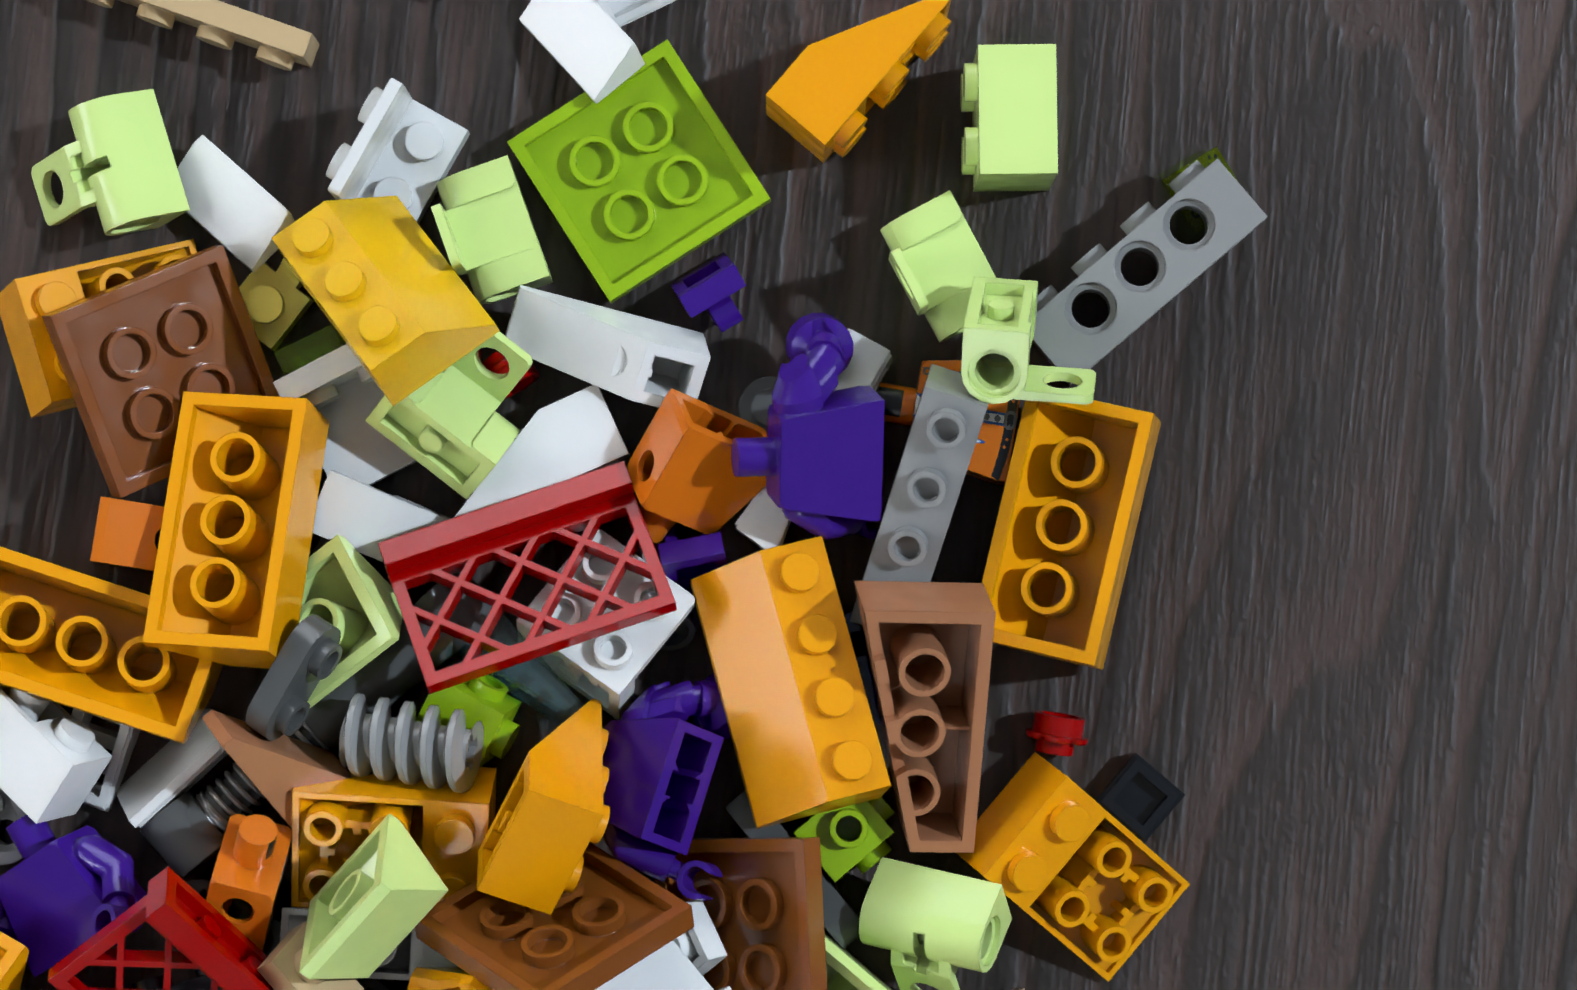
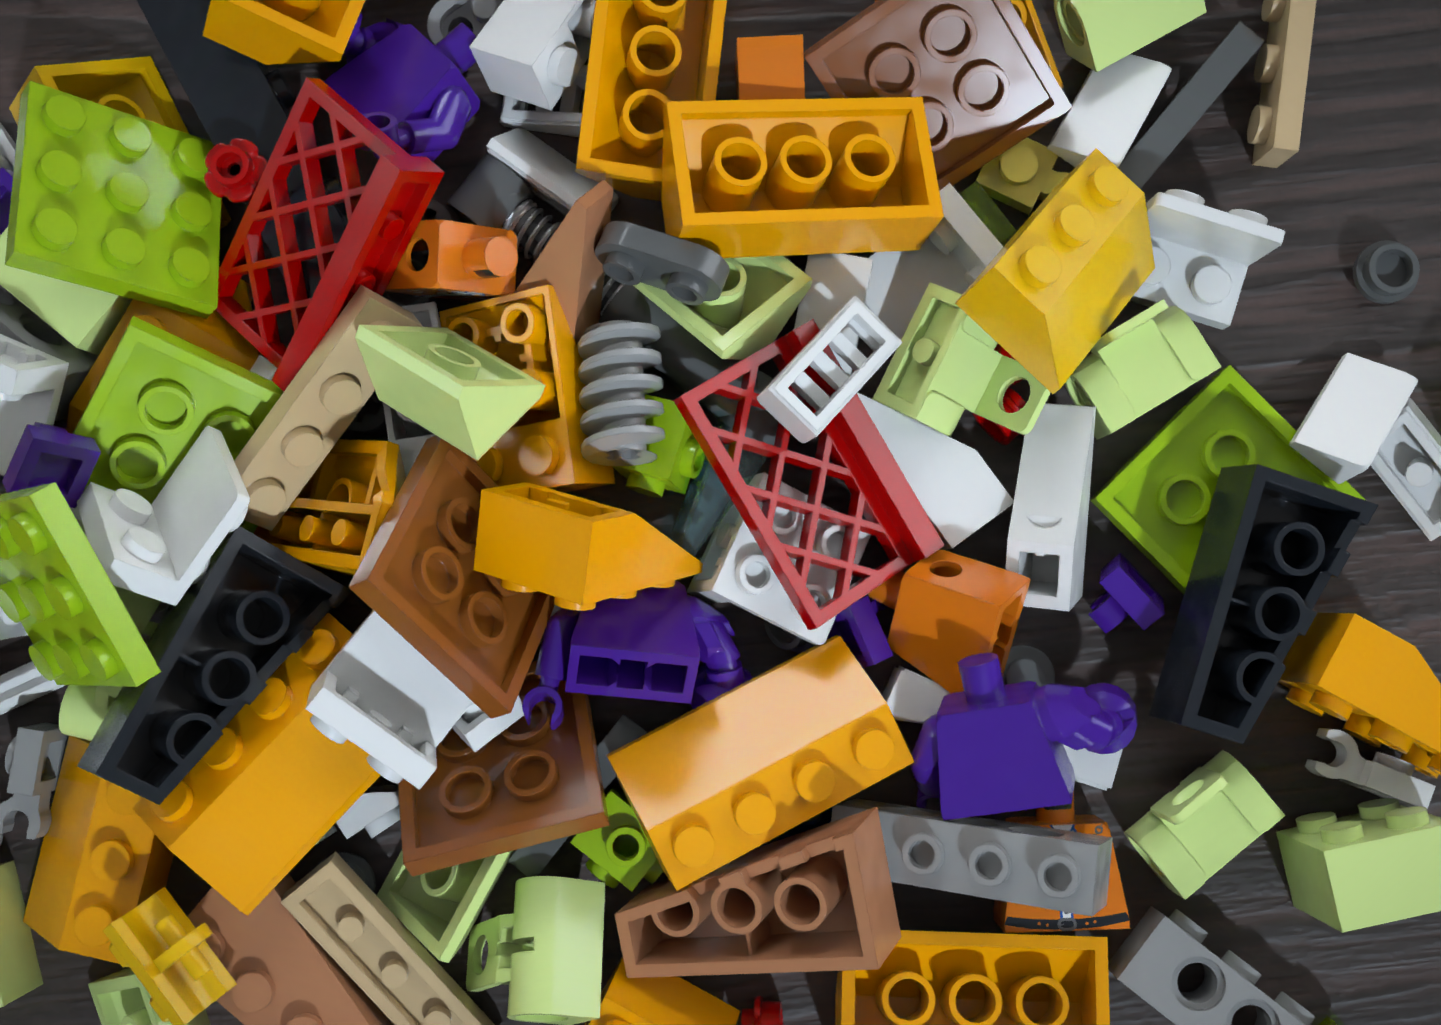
camera: 80 degrees right, 0 degrees up
(244, 128) = (1190, 104): none -> dark grey beam
(461, 585) = (790, 410): none -> white slope
(731, 180) = (1250, 595): none -> black wedge
(937, 82) = (1383, 776): none -> white plate
(998, 346) = (1179, 915): yellowish green piece -> none

